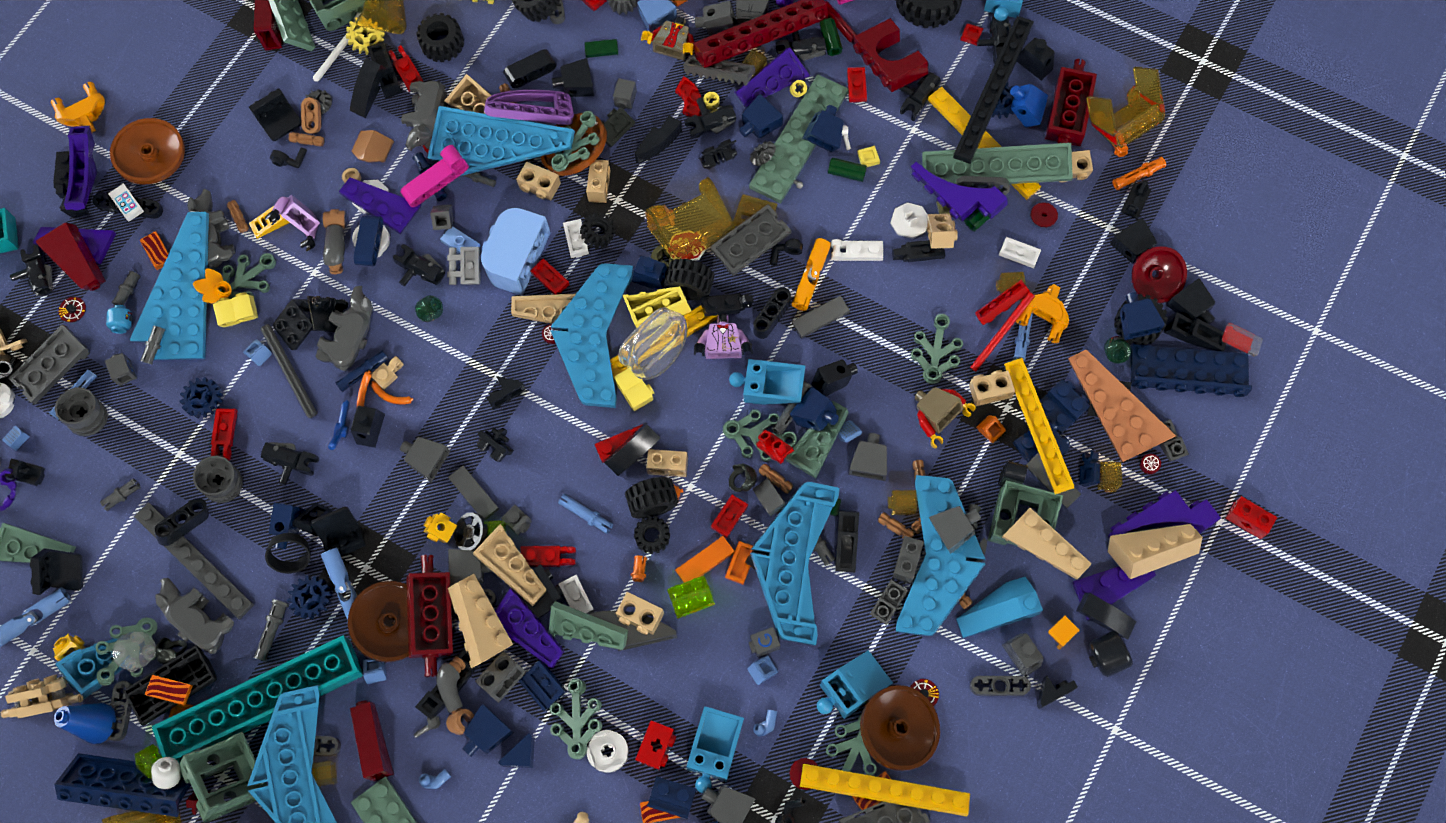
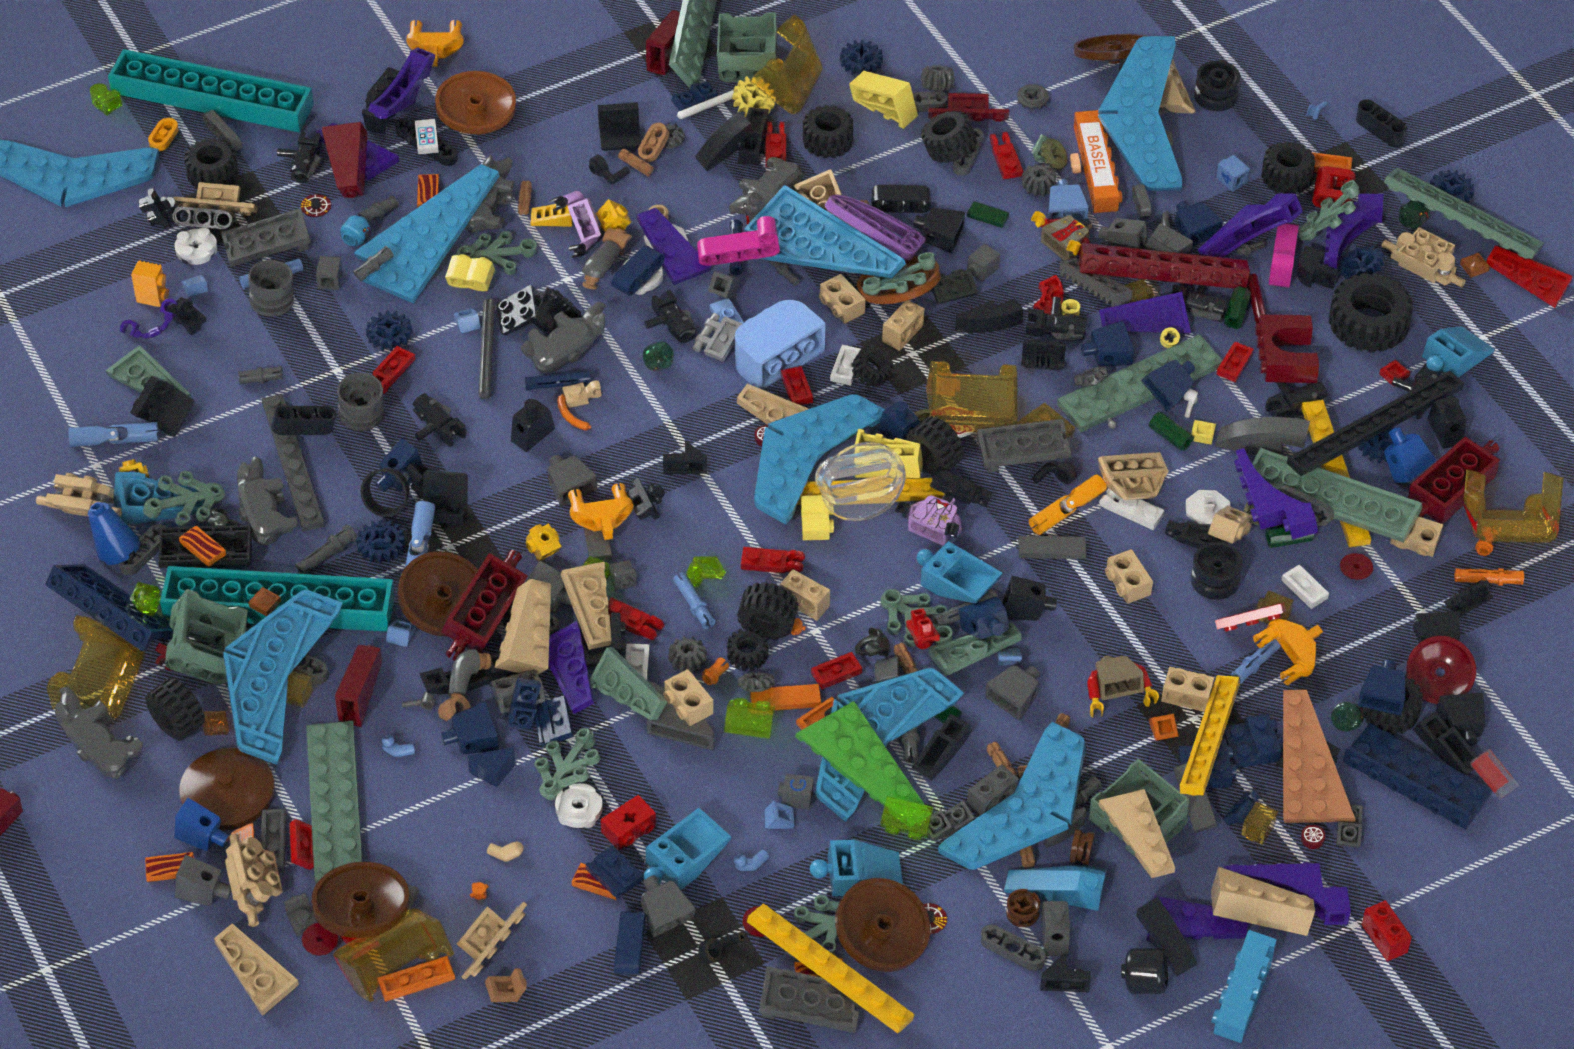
camera: 25 degrees right, 20 degrees down
(134, 650) = (191, 500): clear dish -> none
(166, 773) = (157, 606): white head -> none
(210, 286) = (462, 239): light orange plate -> none
(252, 717) = (264, 601): none -> dark orange tile
(318, 54) = (698, 93): none -> dark blue slope
(319, 200) = (613, 216): none -> yellow brick
(340, 429) = (503, 418): blue piece -> none
(363, 388) = (552, 392): orange piece -> none
(372, 146) = (697, 197): medium nougat slope -> none
(470, 532) = (570, 559): black piece -> none
(472, 478) = (601, 515): none -> light orange connector
(512, 687) = (523, 703): none -> dark blue slope
(577, 481) = (704, 568): none -> clear neon green bracket
(617, 567) = (687, 654): none -> dark grey gear
(632, 449) = (777, 563): black slope -> none
(676, 568) = (756, 682): none -> dark grey gear
(771, 321) = (1002, 518): black beam -> none
(794, 588) = (858, 754): none -> bright green wing
(848, 225) = (1134, 474): none -> tan wedge
(861, 621) = (906, 818): none -> clear neon green bracket
(895, 309) = (1129, 576): none -> tan brick
(902, 502) = (1022, 741): clear yellow brick -> none
(918, 139) = (1263, 433): none -> dark grey slope
(936, 352) = (1175, 610): sand green plant -> none
(953, 275) = (1216, 570): none -> black wheel
(955, 526) = (1056, 773): dark grey torso -> none
(988, 647) = (1017, 912): none -> reddish brown wheel
(1000, 571) = (1079, 845): none -> reddish brown wheel
(1003, 330) = (1229, 642): red piece -> none
(1013, 472) = (1152, 755): black beam -> none
(1063, 631) = (1111, 931): light orange panel -> none
(1185, 627) = (1244, 986): none -> dark azure wedge

